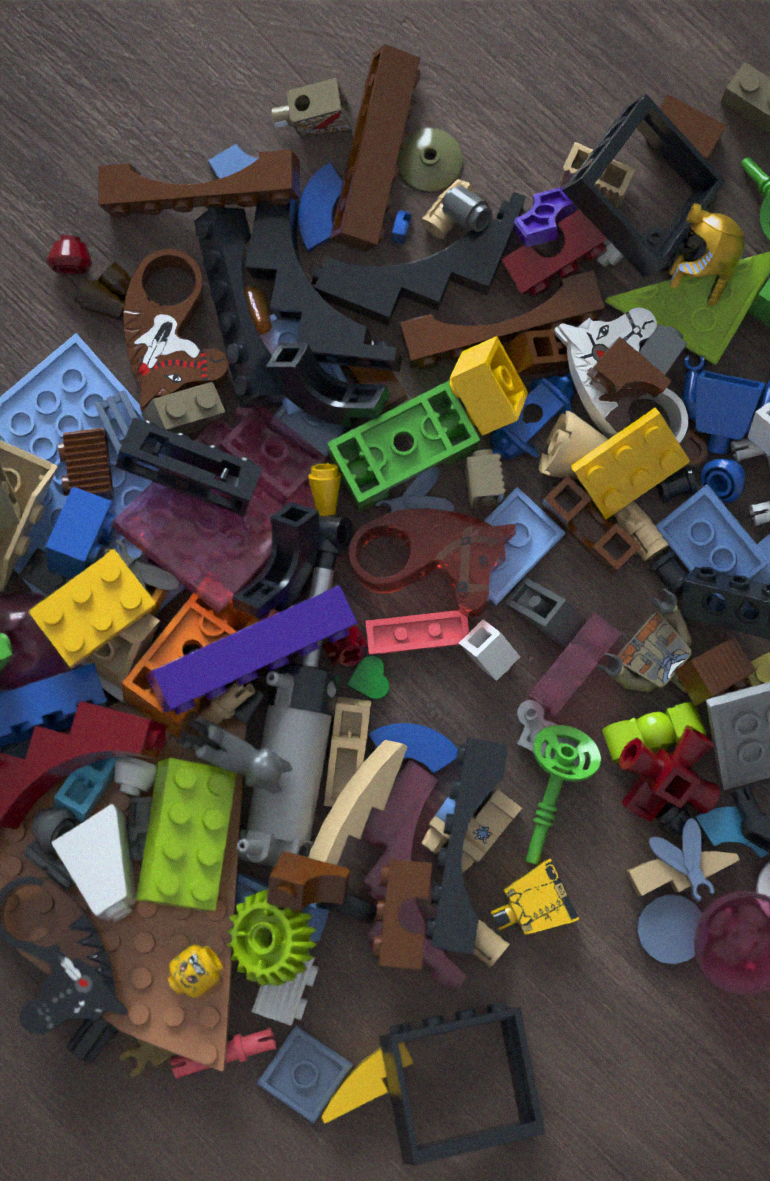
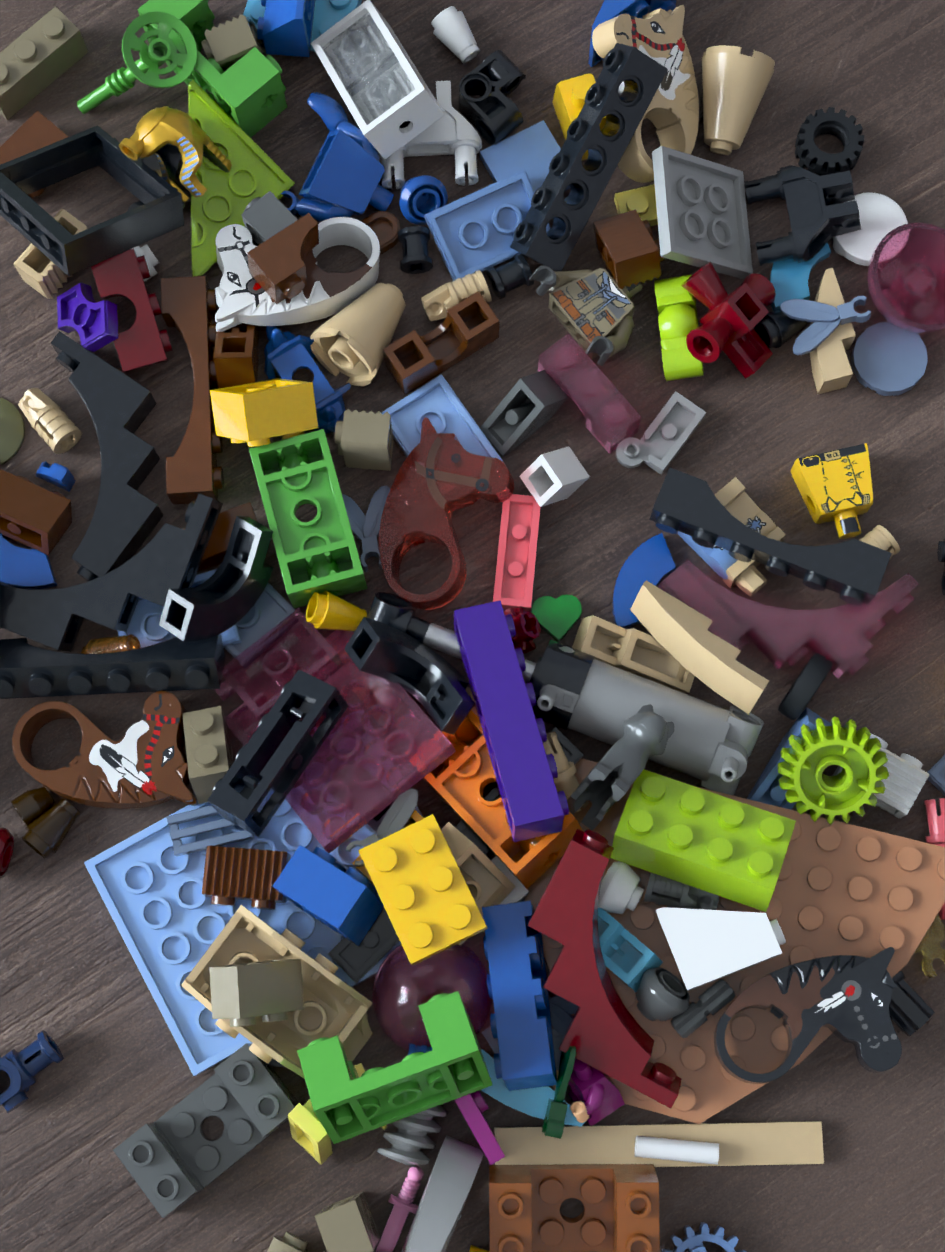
camera: 75 degrees left, 5 degrees down
(194, 971) = (857, 861): yellow head -> none
(306, 881) = (780, 714): reddish brown arch -> none
(397, 945) = (797, 616): reddish brown arch -> none
(466, 209) = (57, 393): dark grey brick -> none
(558, 767) = (694, 425): bright green dish -> none
(630, 463) = (385, 282): yellow plate -> none

